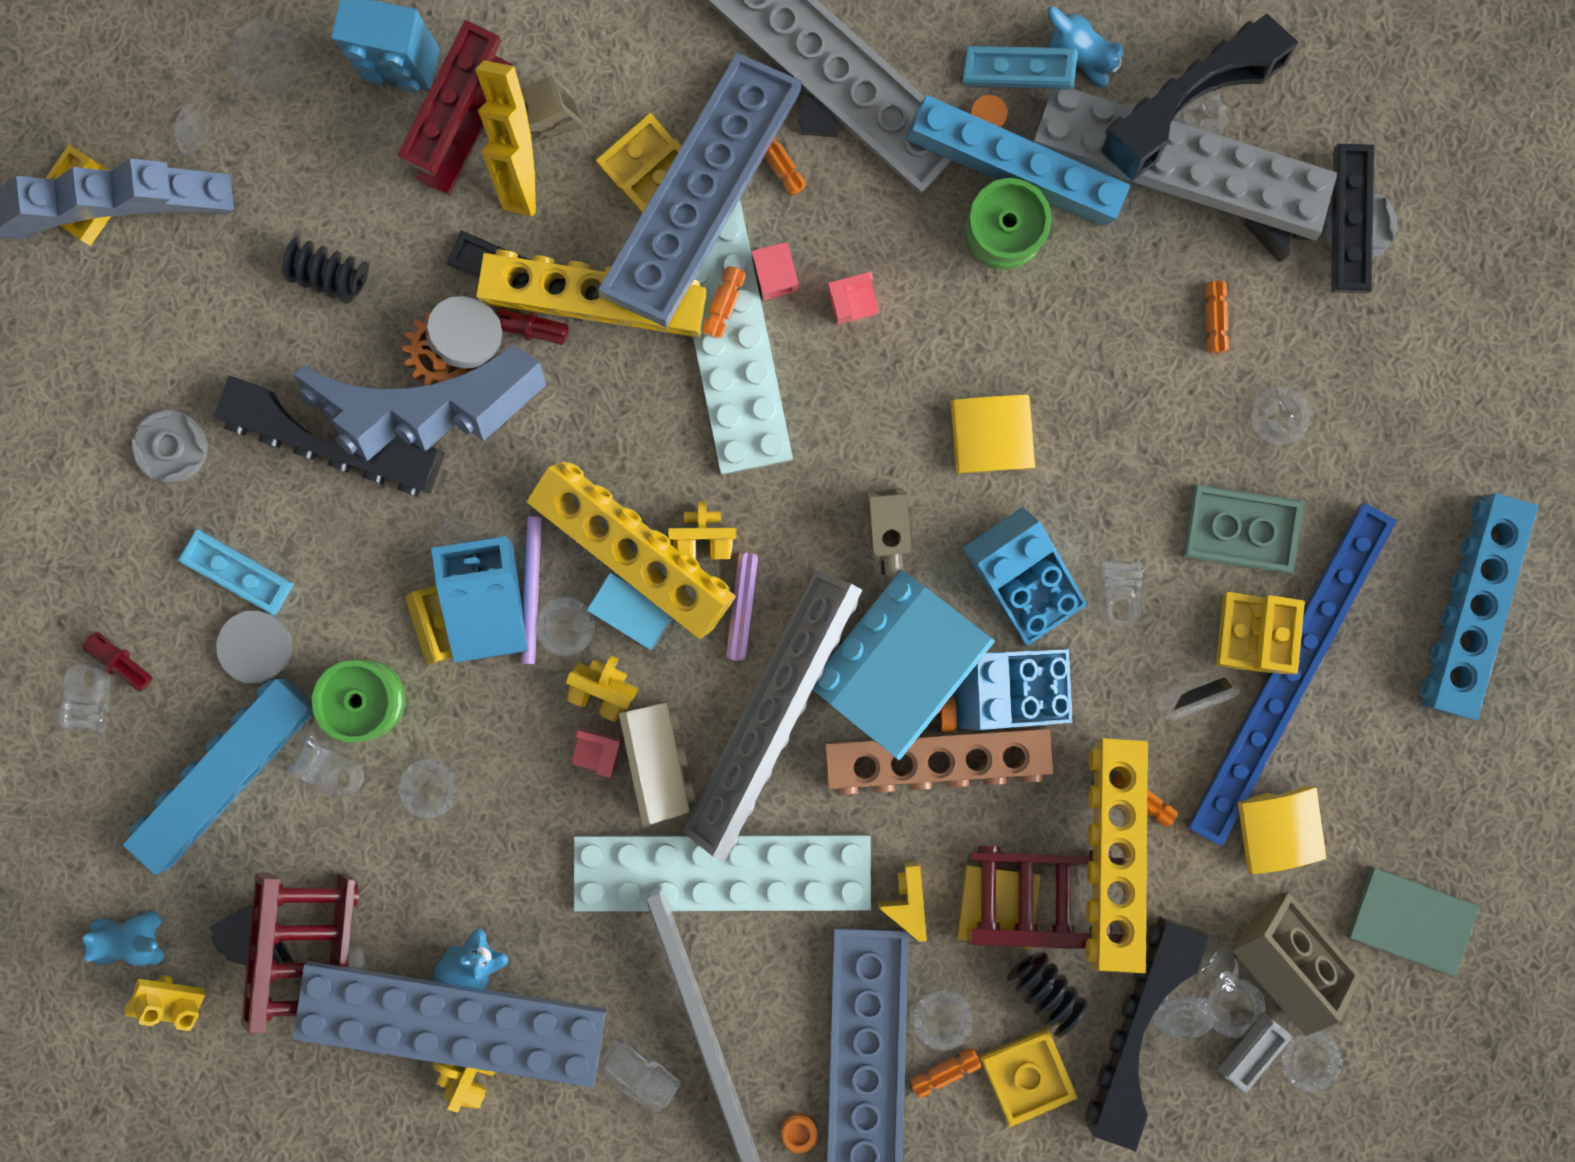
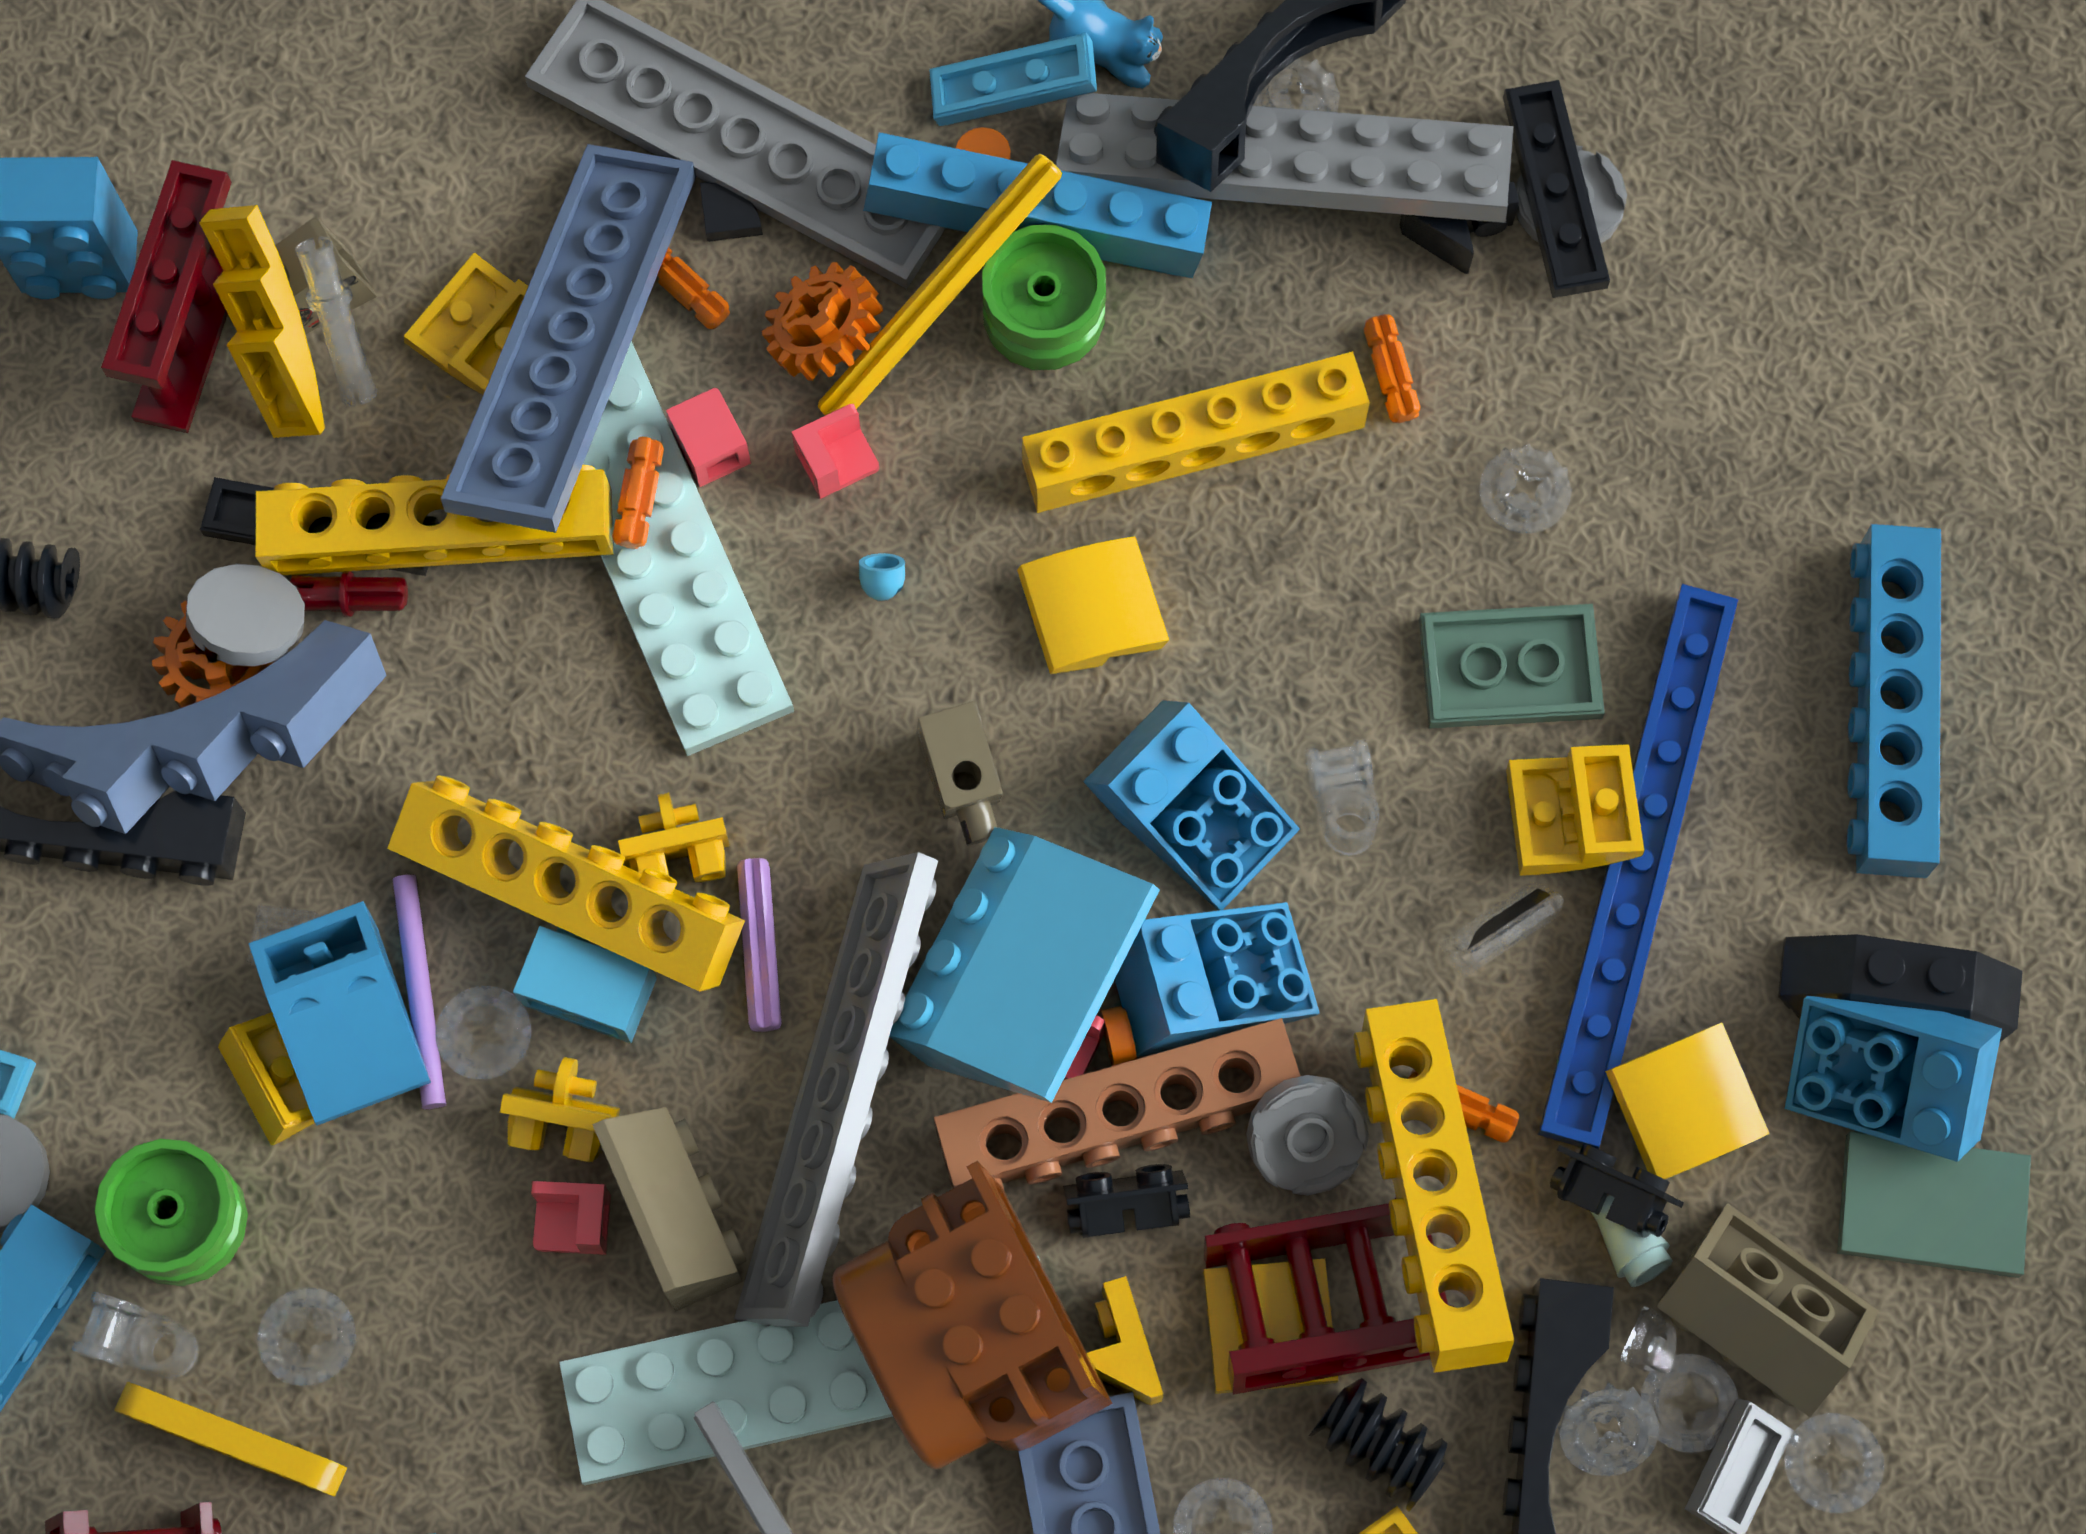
camera: 15 degrees left, 15 degrees down
(373, 841) = (230, 1439): none -> yellow beam
(552, 133) = (330, 301): none -> clear pin
(818, 885) = (967, 1328): none -> dark orange brick
(863, 209) = (822, 321): none -> orange gear
(865, 386) = (881, 575): none -> medium azure hinge
(945, 206) = (943, 285): none -> yellow axle
(947, 812) = (1148, 1193): none -> black hinge
(1048, 801) = (1307, 1134): none -> light grey tile
(1083, 335) = (1195, 432): none -> yellow brick
(1225, 904) = (1632, 1255): none -> light aqua cone
(1237, 884) = (1637, 1199): none -> black hinge
(1413, 844) = (1894, 1073): none -> dark azure slope
(1425, 796) = (1902, 976): none -> black wedge

